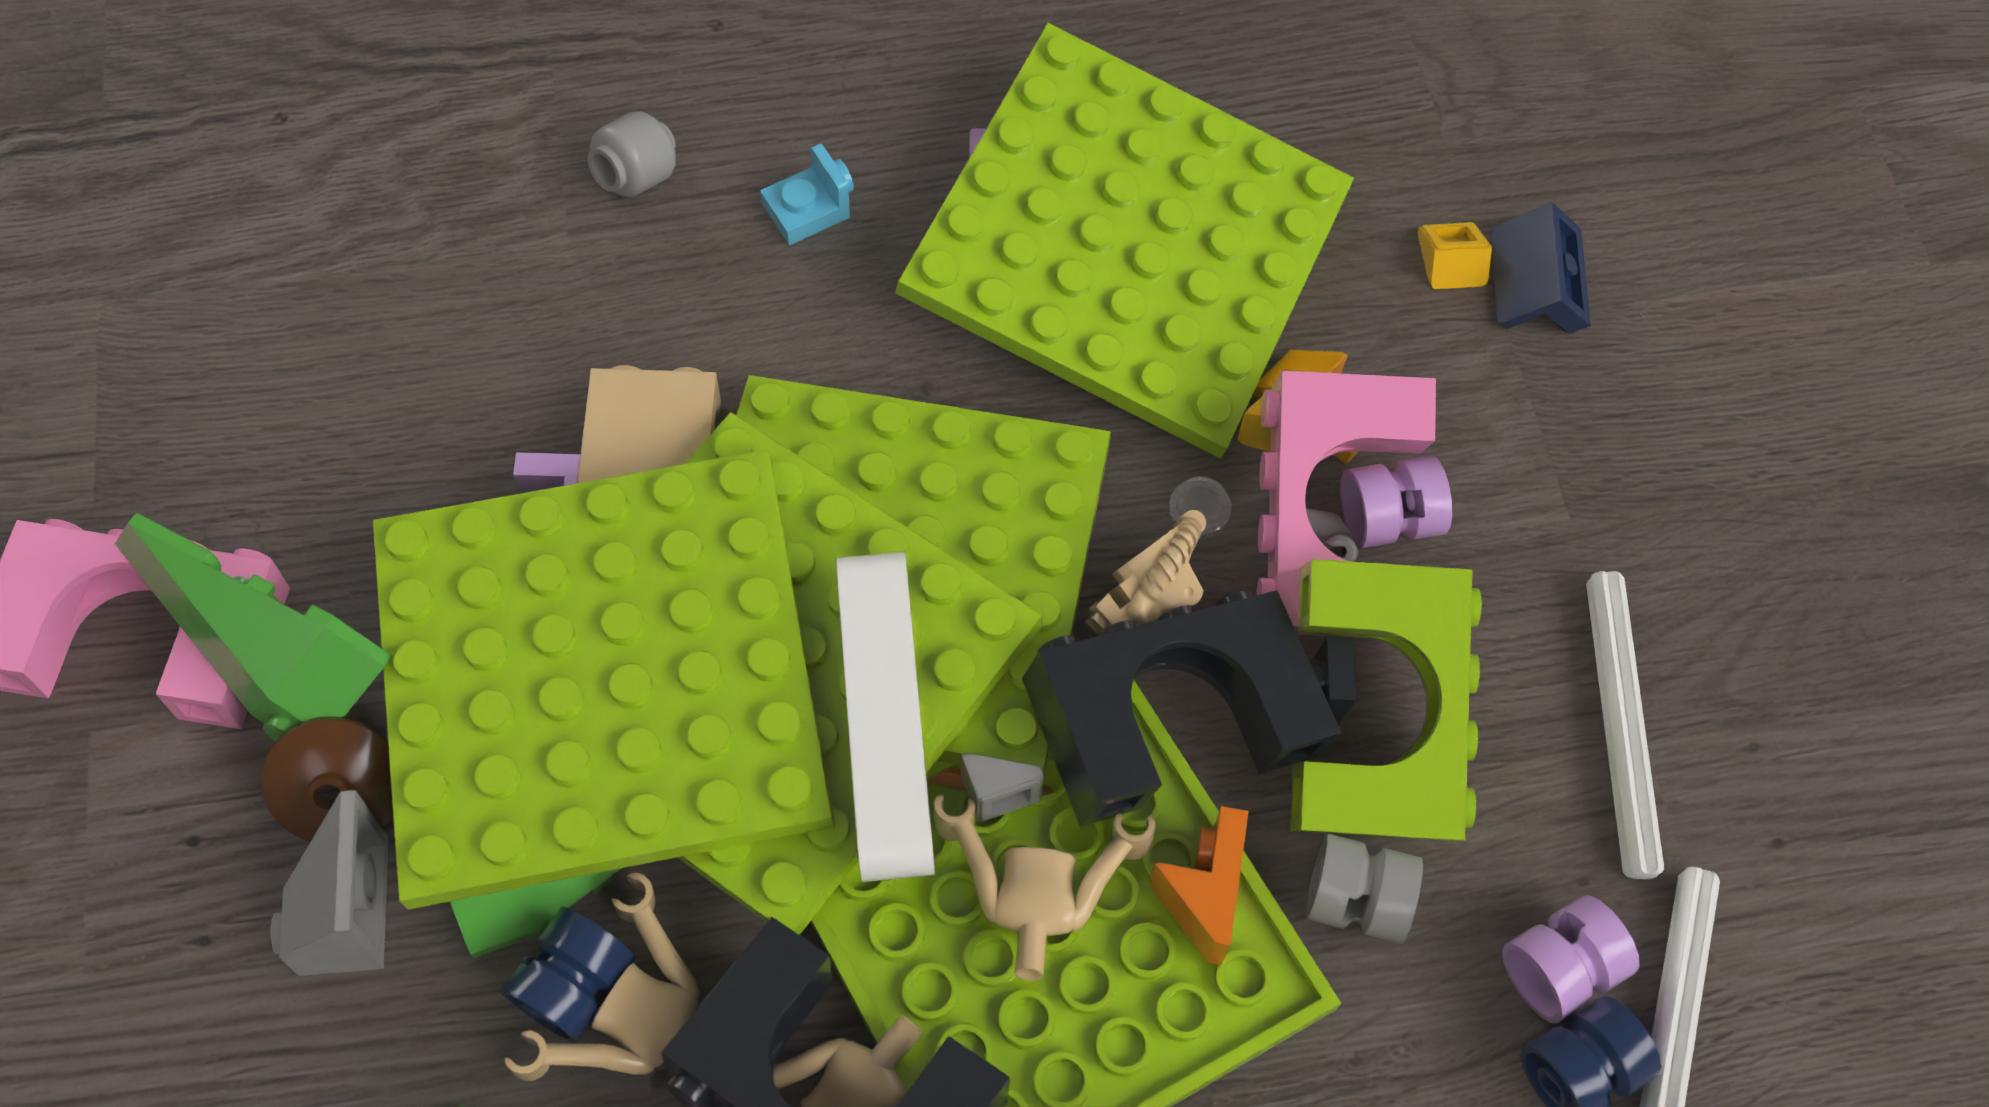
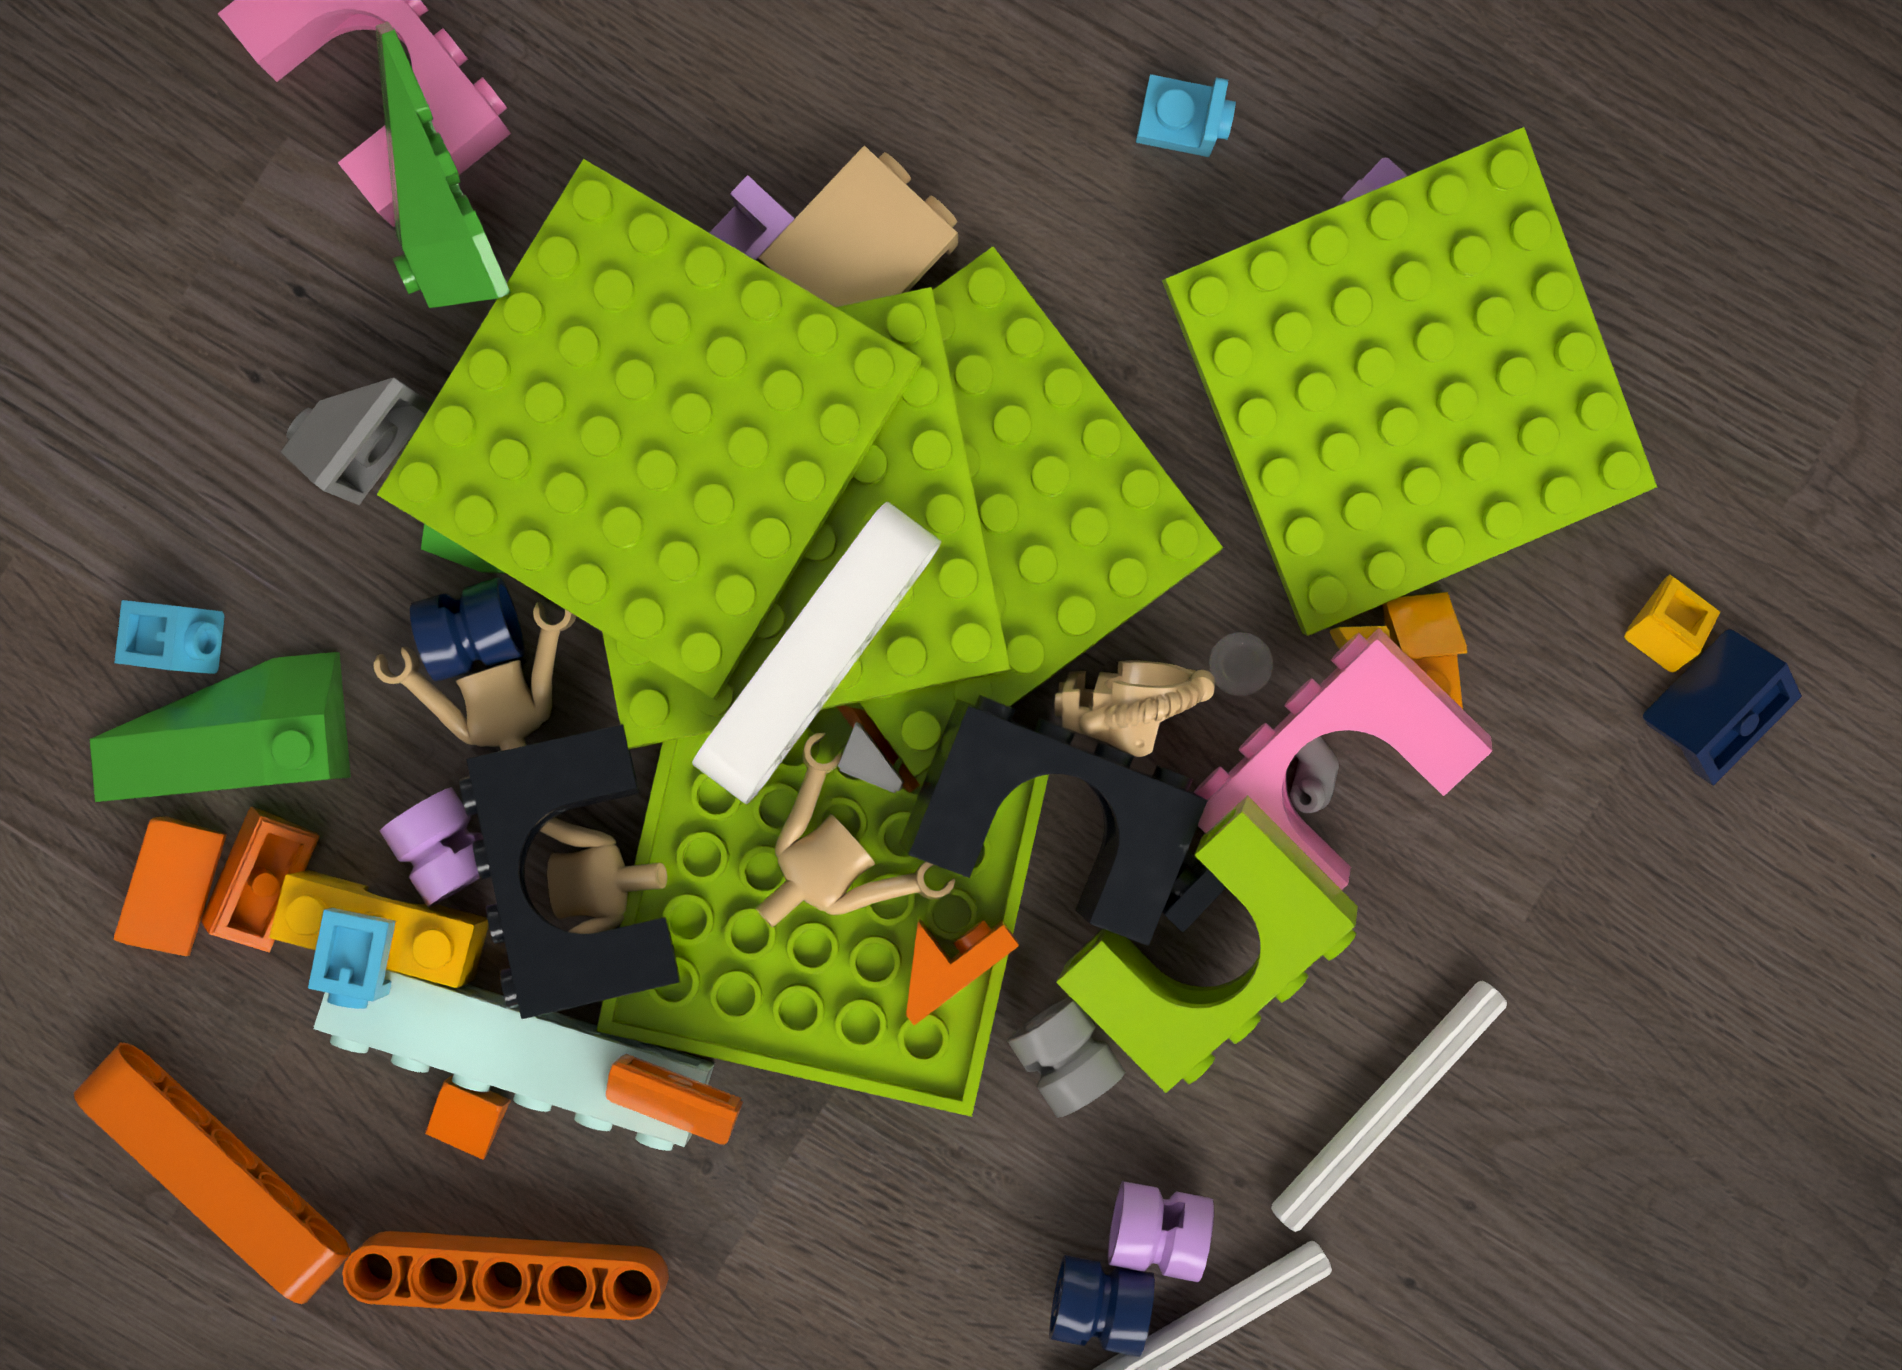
camera: 45 degrees right, 25 degrees up
(326, 753) = (412, 335): reddish brown dish -> none
(1406, 500) = (1389, 798): lavender wheel -> none

